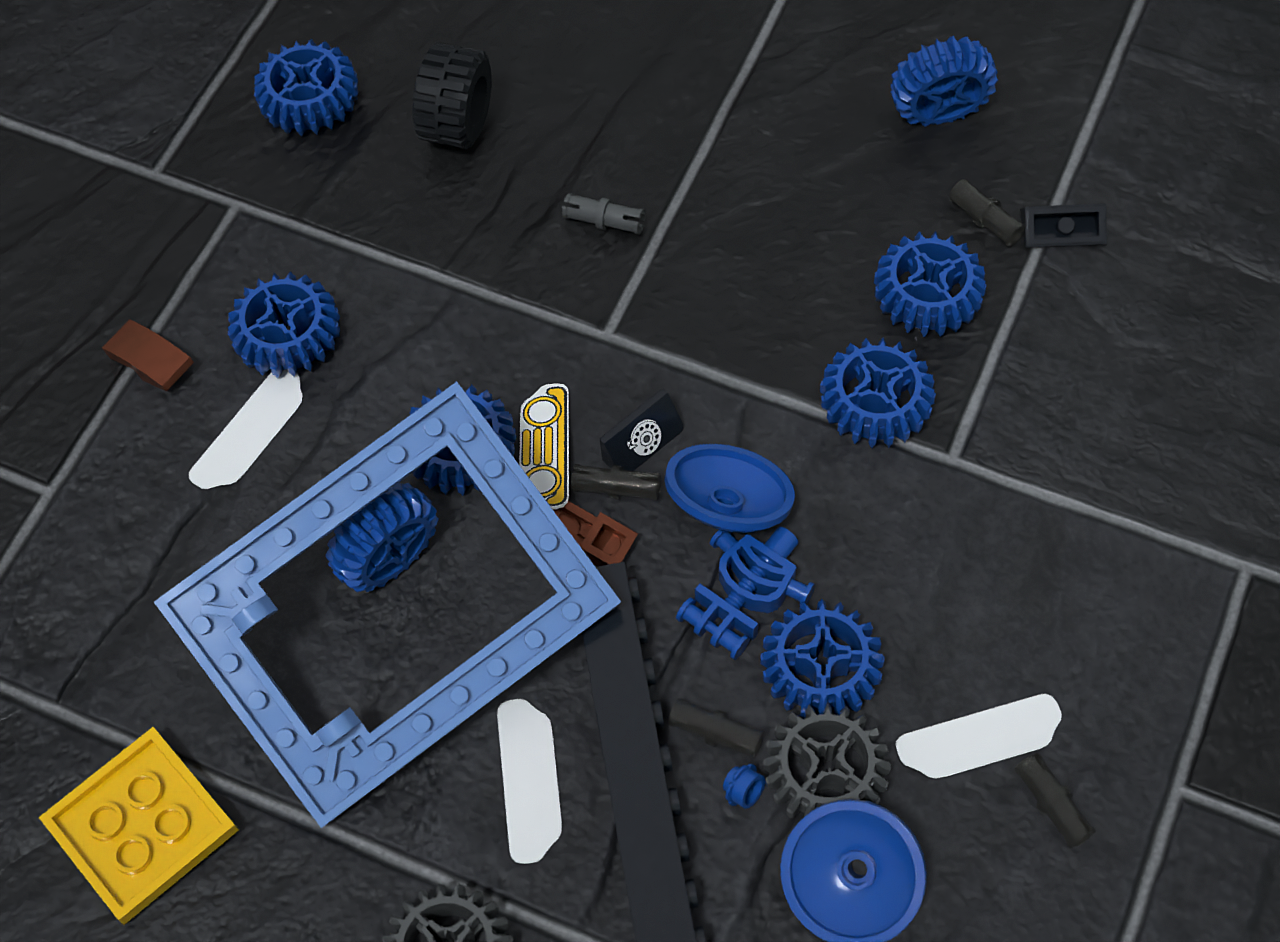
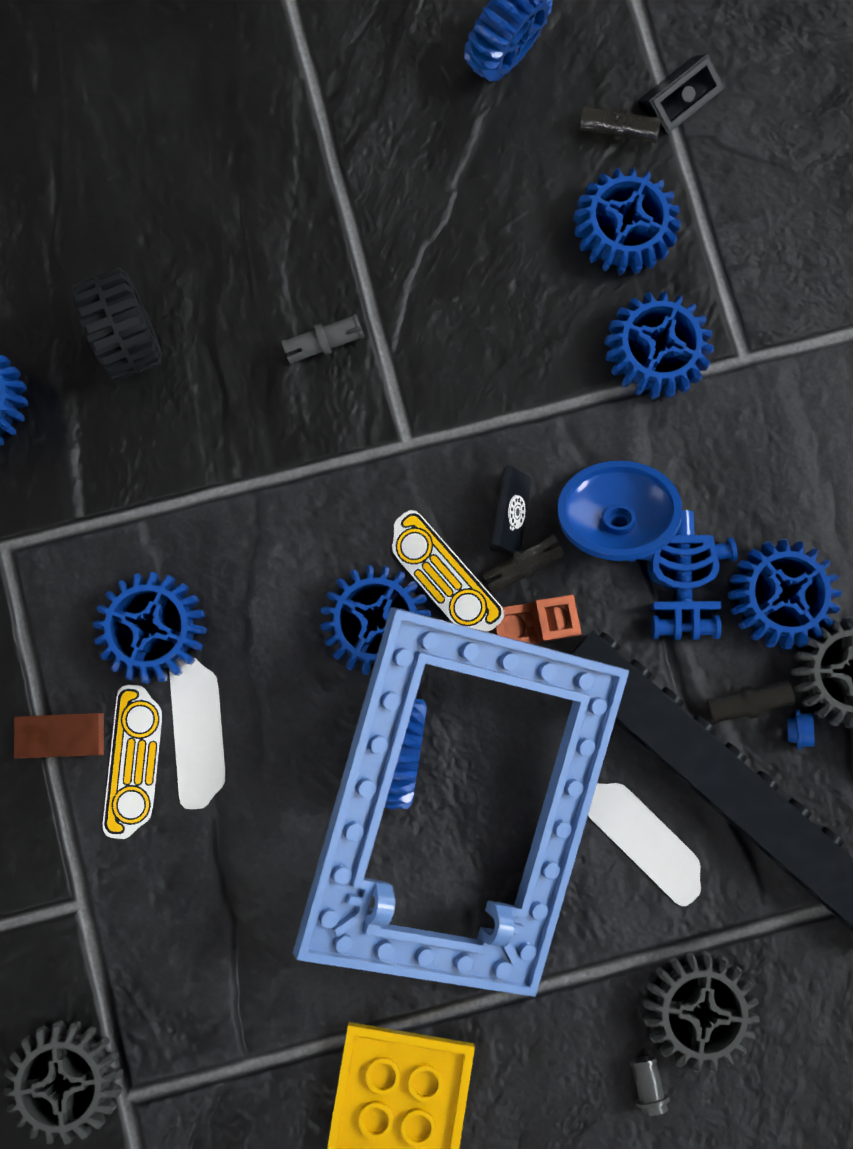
camera: 45 degrees left, 20 degrees up
(182, 417) = (132, 762): none -> sticker

